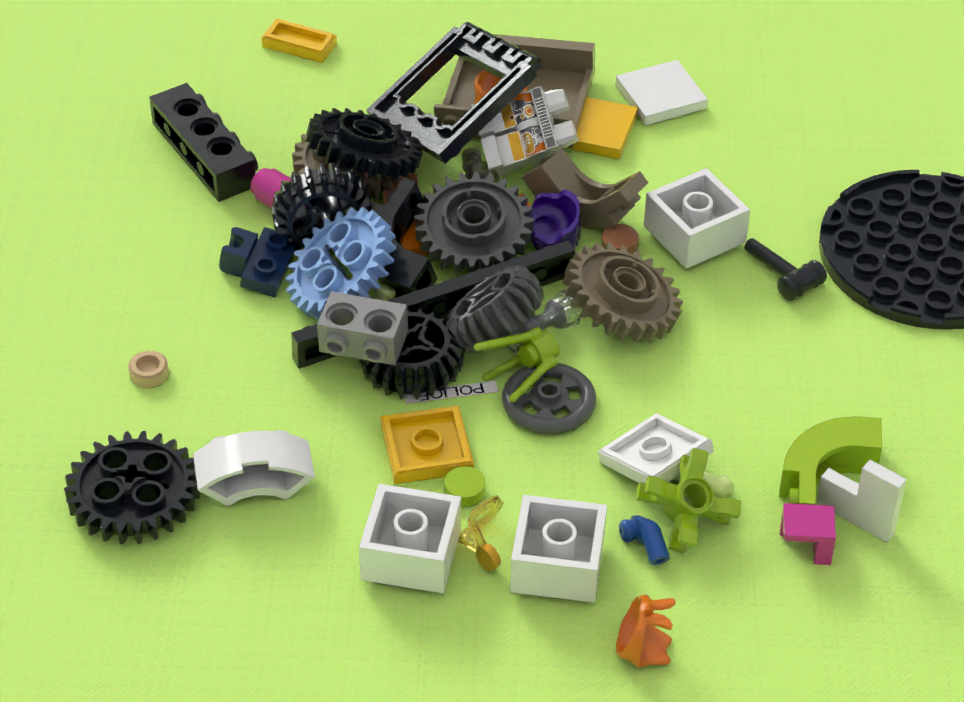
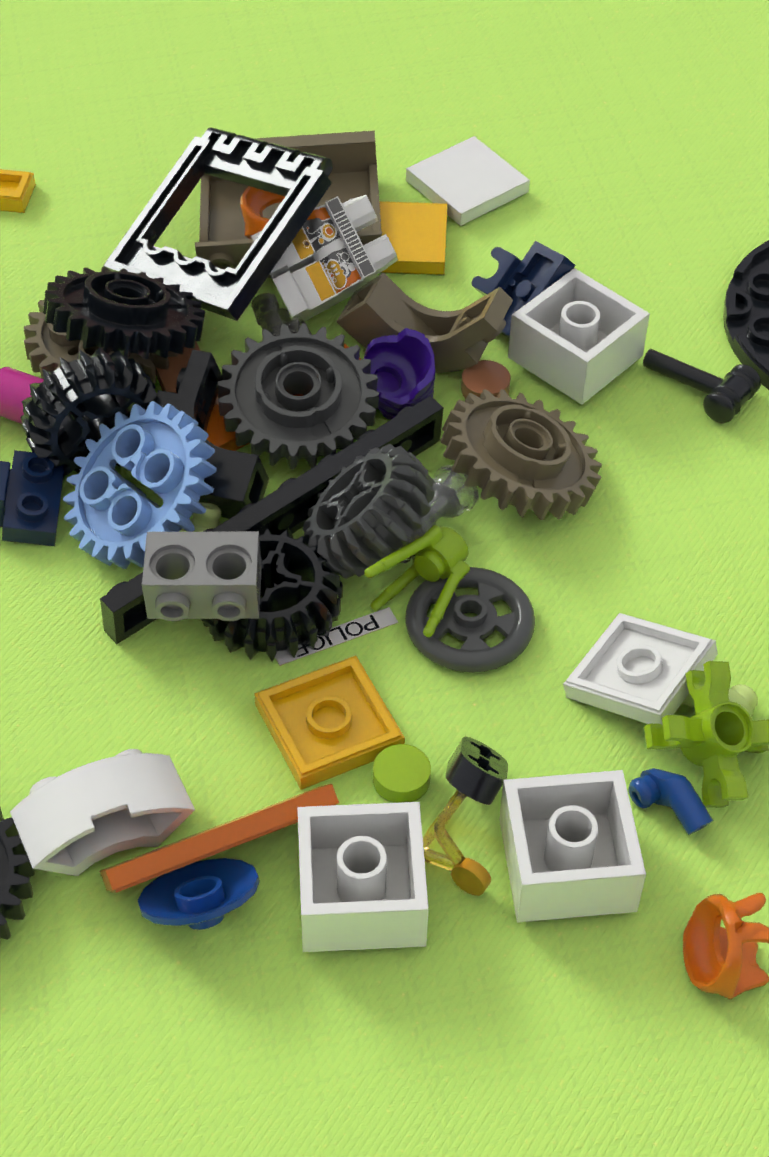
camera: 15 degrees left, 5 degrees up
(302, 529) = (199, 893): none -> blue dish
(315, 499) = (213, 840): none -> orange tile
(509, 488) = (476, 770): none -> black beam
(667, 168) = (523, 278): none -> dark blue plate

